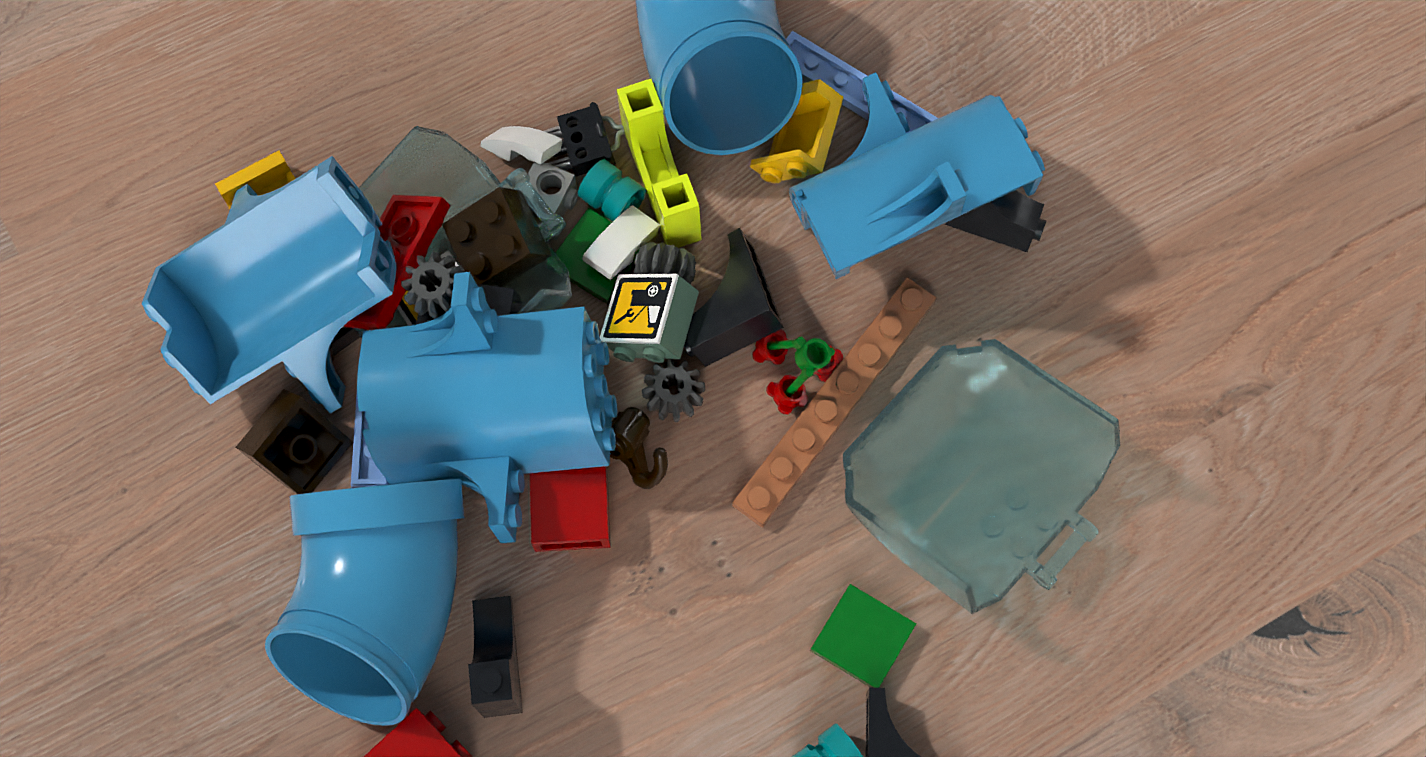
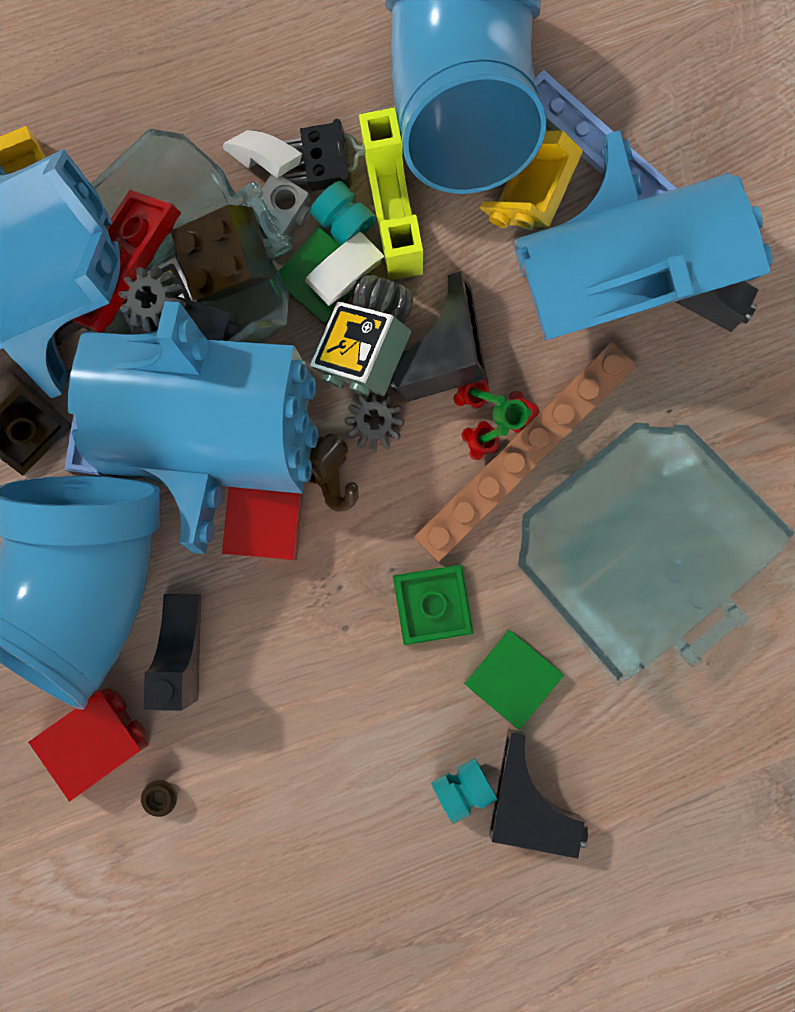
camera: 10 degrees right, 15 degrees up
(763, 571) = (432, 604): none -> green tile

